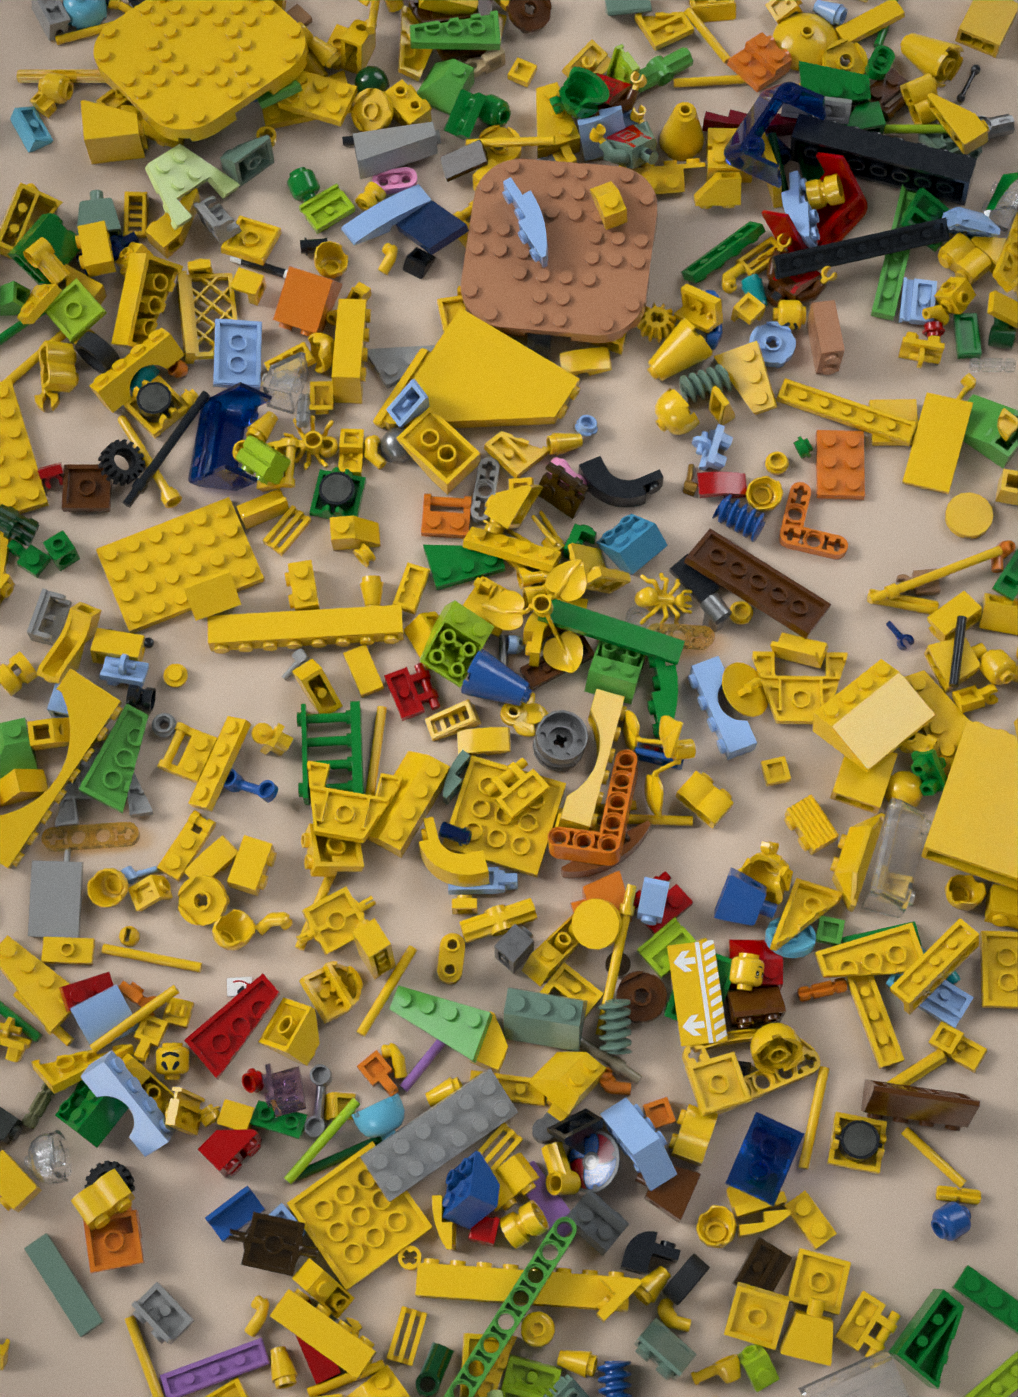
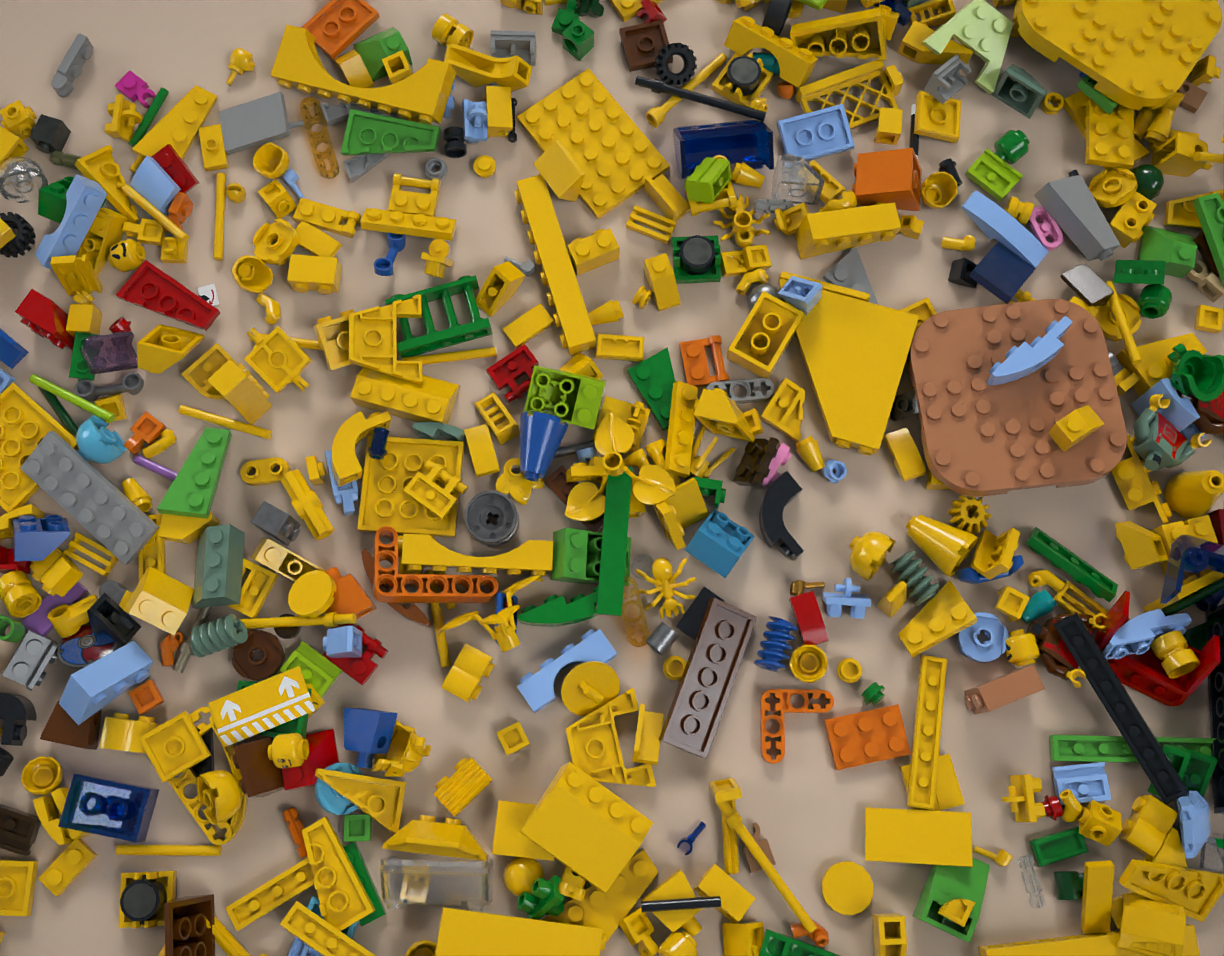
camera: 75 degrees right, 5 degrees up
(864, 591) = (725, 790): none -> yellow tile

